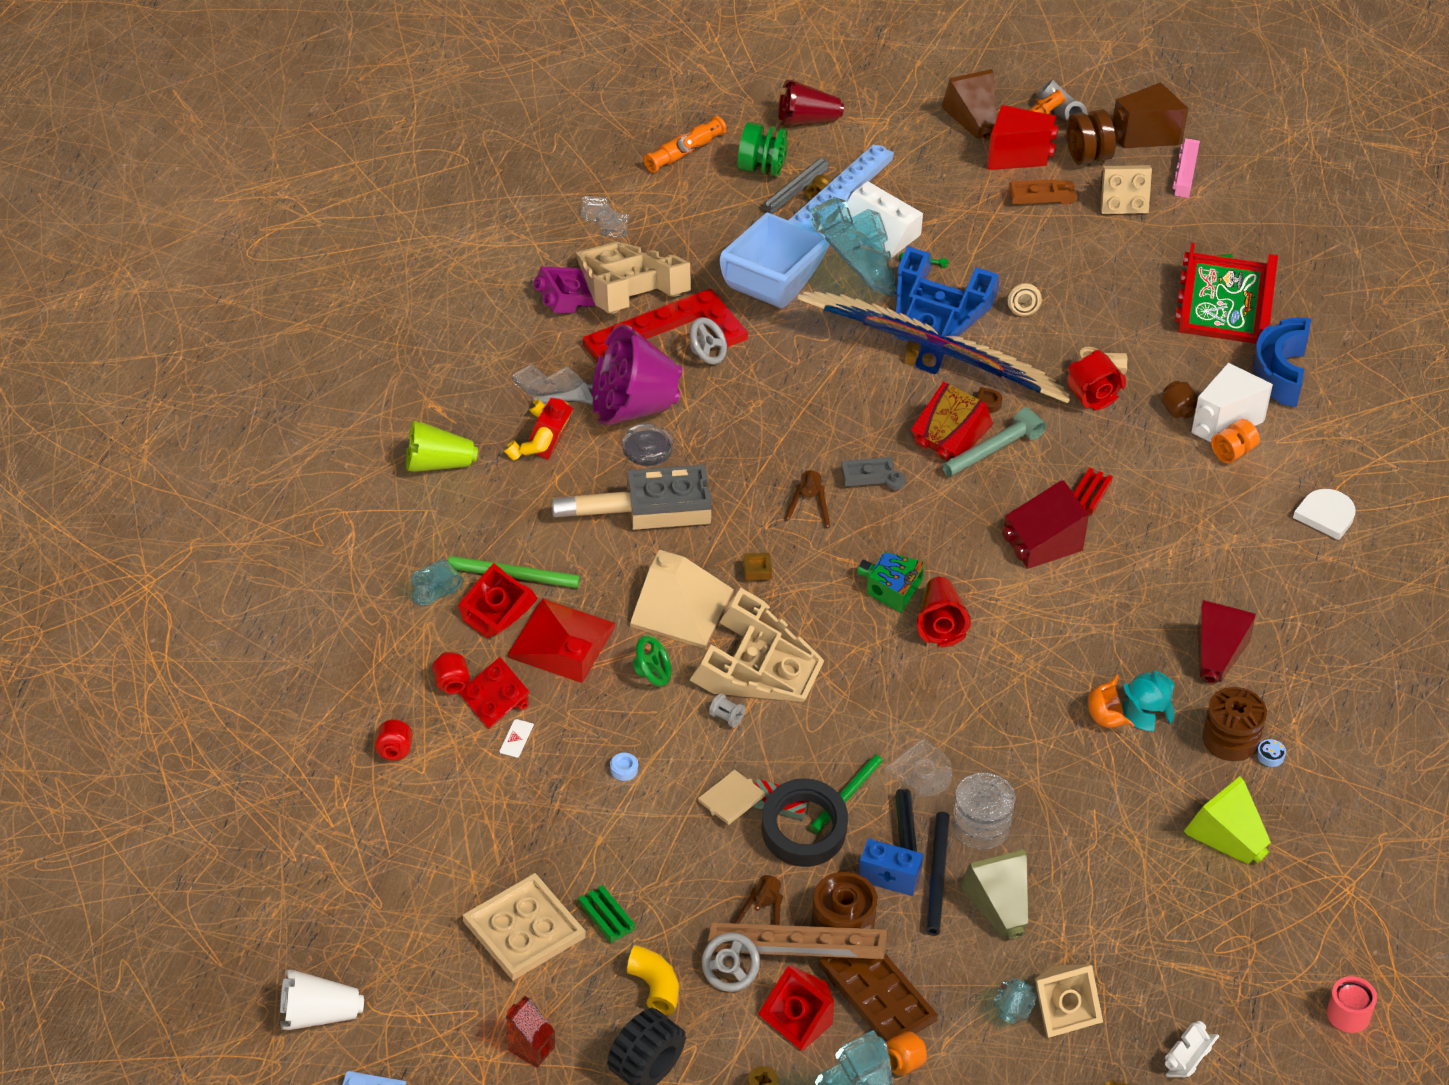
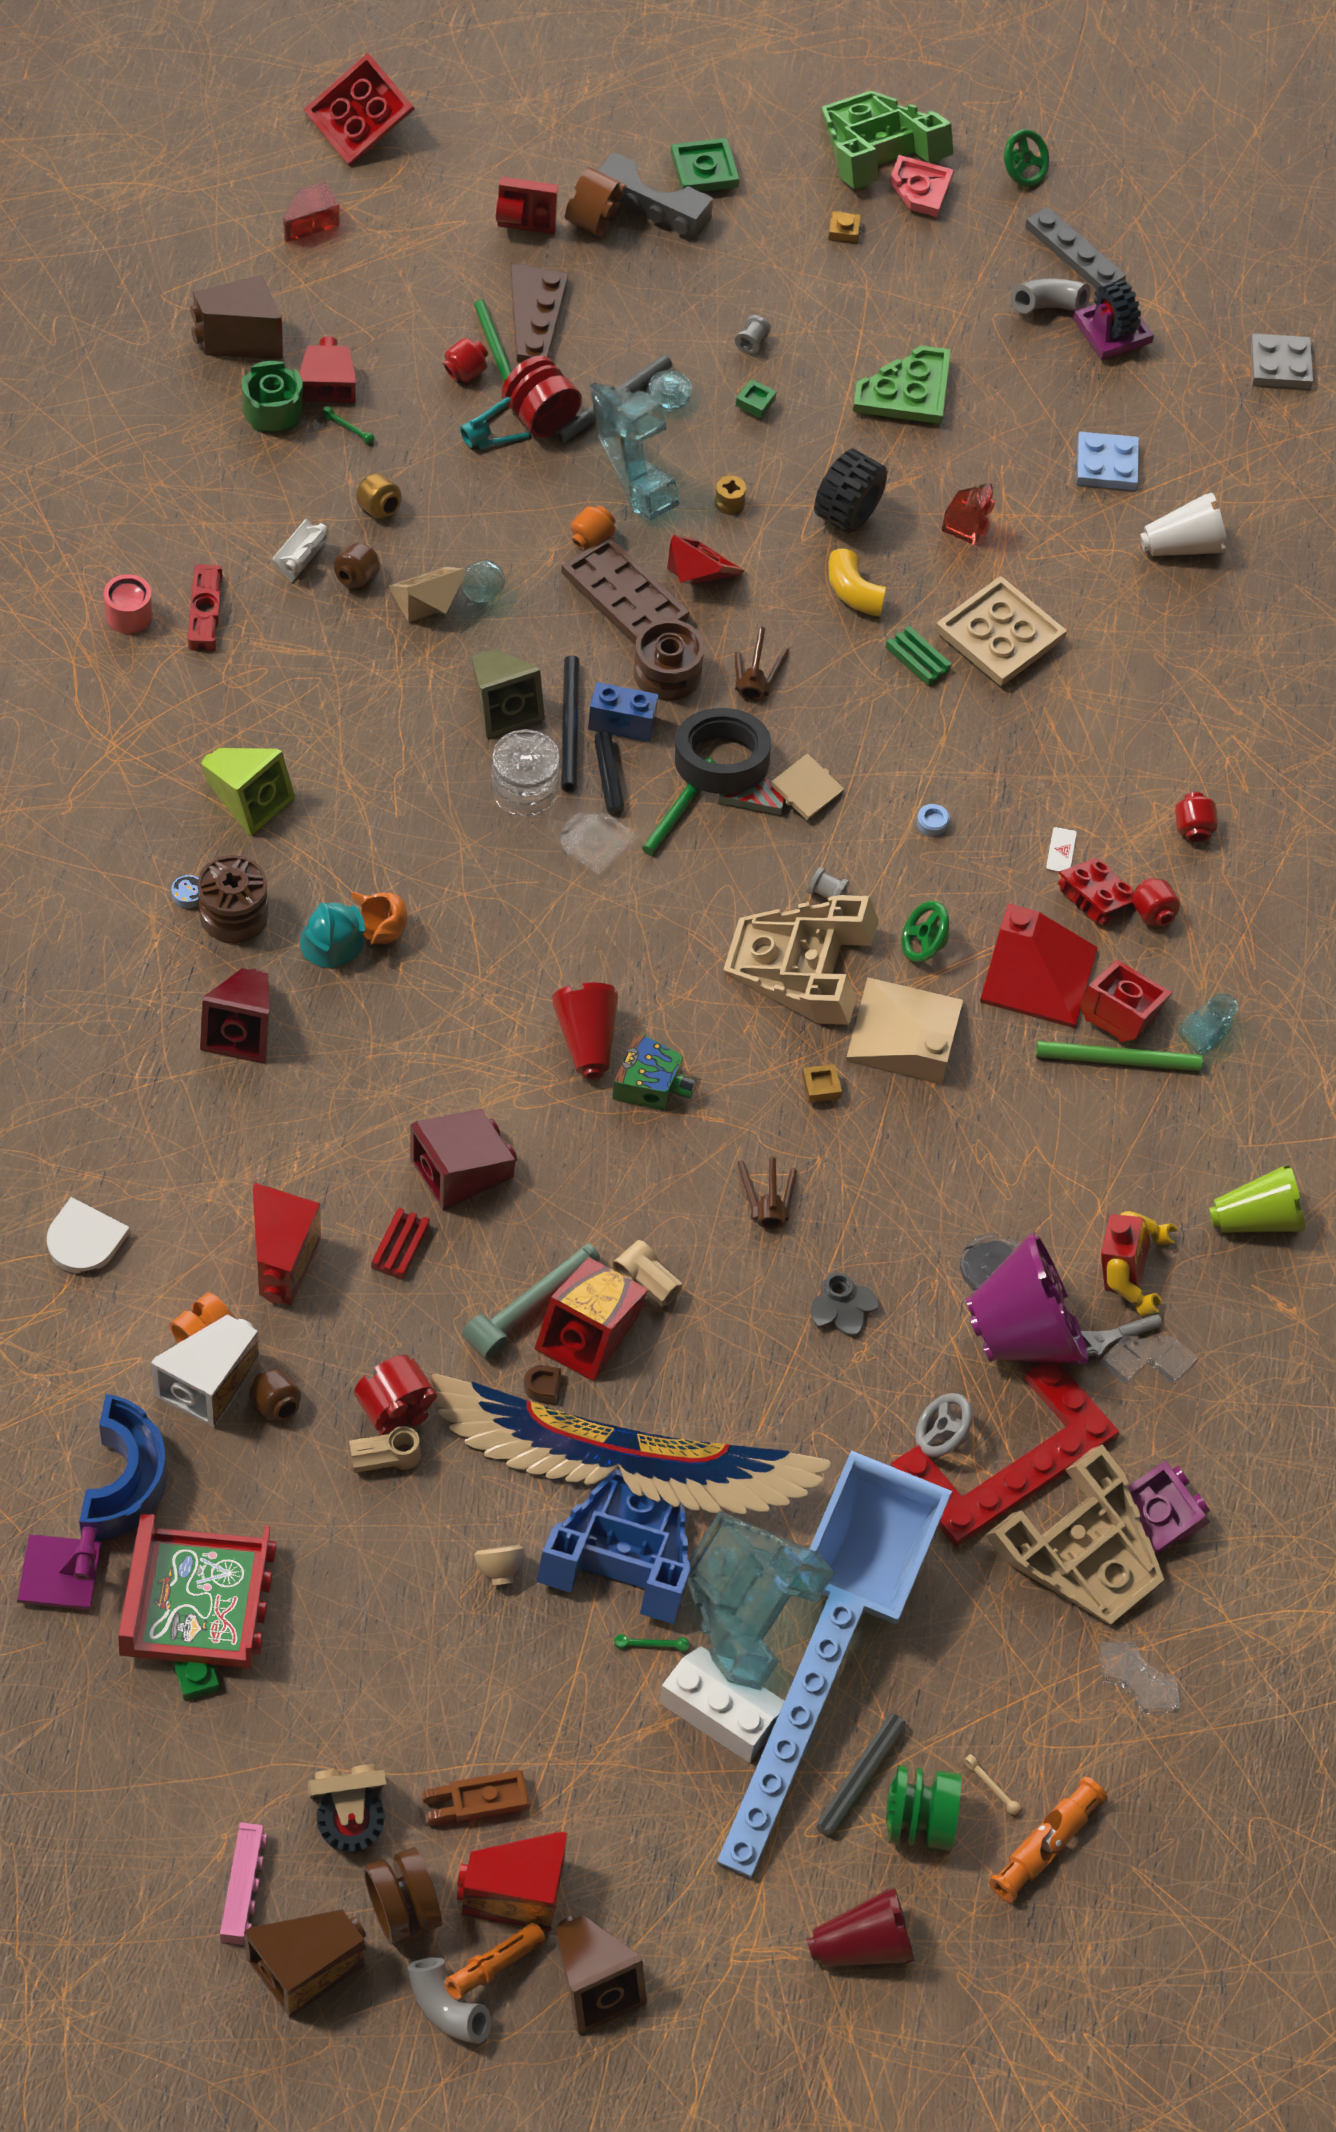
camera: 170 degrees right, 10 degrees up
(652, 497) = (970, 1157): piece -> none
(719, 963) = (781, 595): light grey piece -> none
(723, 185) = (1013, 1807): none -> tan hinge
(765, 429) = (842, 1309): none -> dark grey plate
(806, 940) = (716, 619): medium nougat plate -> none
(817, 186) = (823, 1757): pearl gold wheel -> none
(872, 472) = (692, 1239): dark grey hinge -> none
(911, 456) = (642, 1267): none -> tan piece
(1135, 1029) = (356, 565): none -> reddish brown head
(1181, 478) = (285, 1241): none -> red slope
(1278, 1025) = (204, 590): none -> red piece
(1326, 320) = (60, 1570): none -> magenta plate

